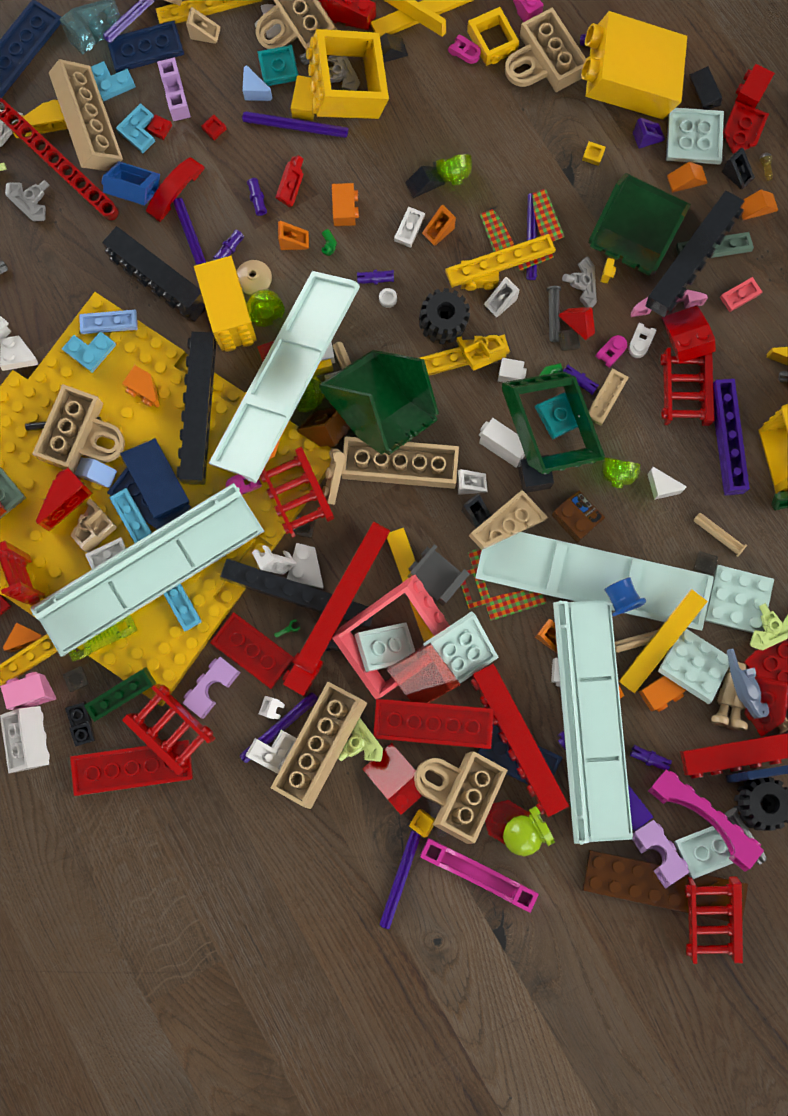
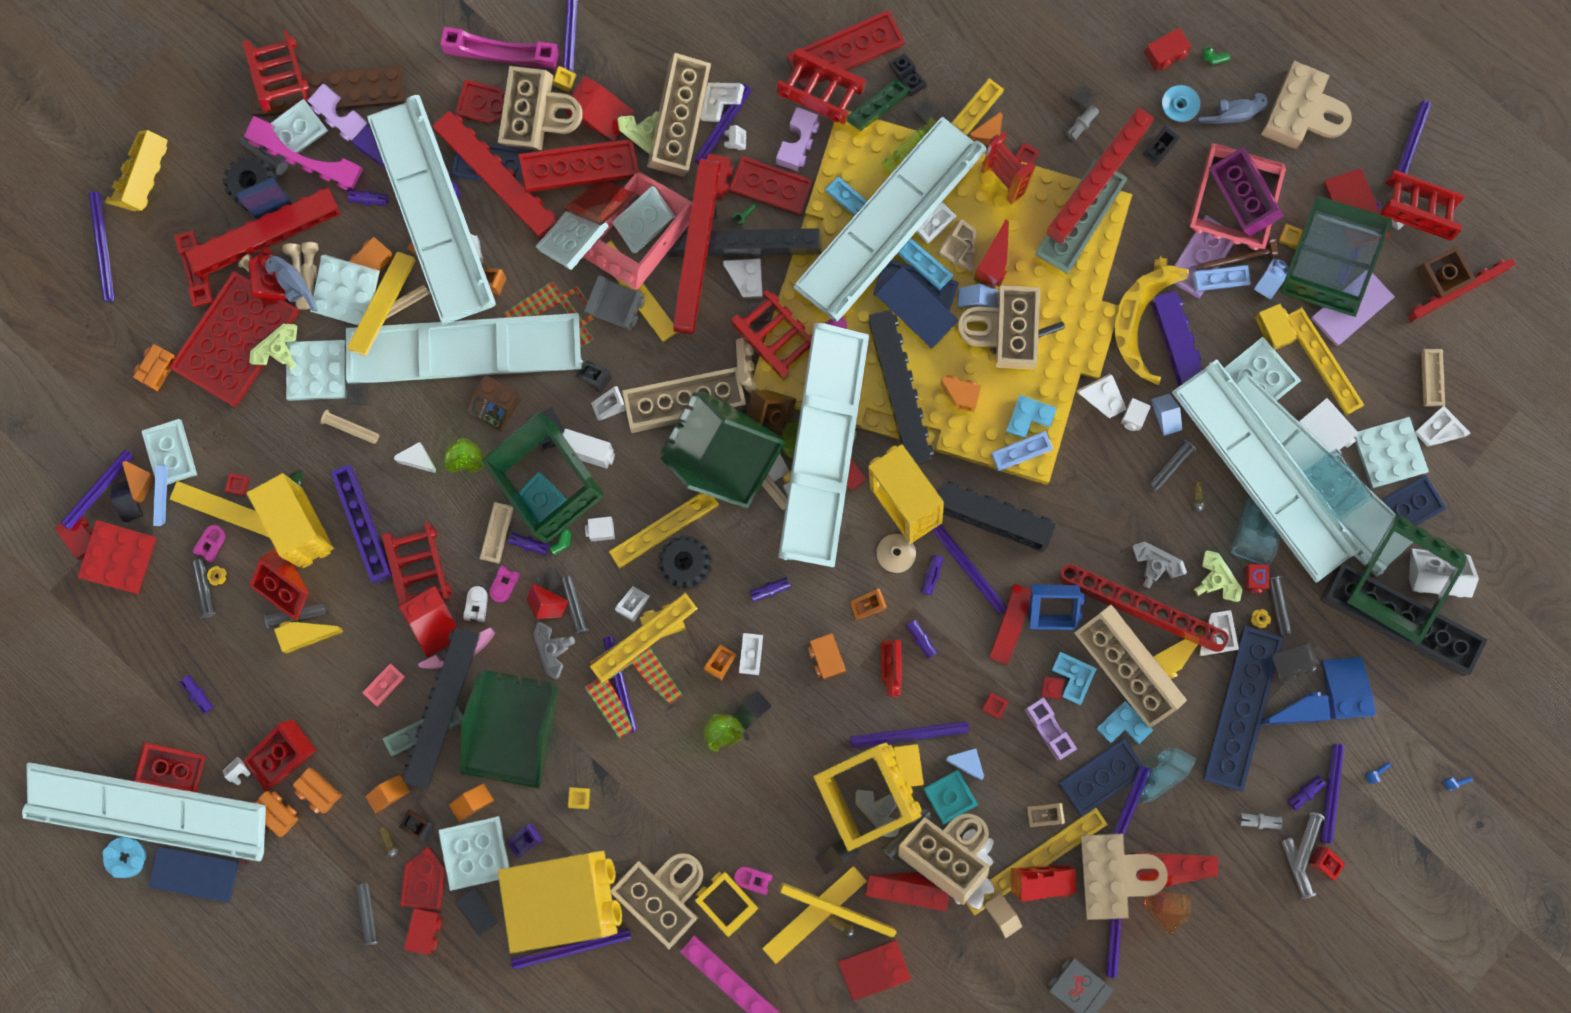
camera: 160 degrees right, 0 degrees up
(24, 739) = (952, 44): white slope -> none
(27, 691) = (962, 80): bright pink slope -> none
(265, 307) = (872, 519): clear neon green cylinder -> none
(273, 562) = (776, 267): white hinge -> none
(330, 244) = (828, 611): green arm -> none
(387, 297) = (750, 572): white tile -> none
(482, 350) = (636, 540): yellow slope -> none
(509, 520) = (557, 380): tan wing -> none
(525, 834) = (465, 91): lime tile -> none
(609, 270) = (529, 667): yellow plate -> none
(624, 596) = (429, 328): blue piece -> none

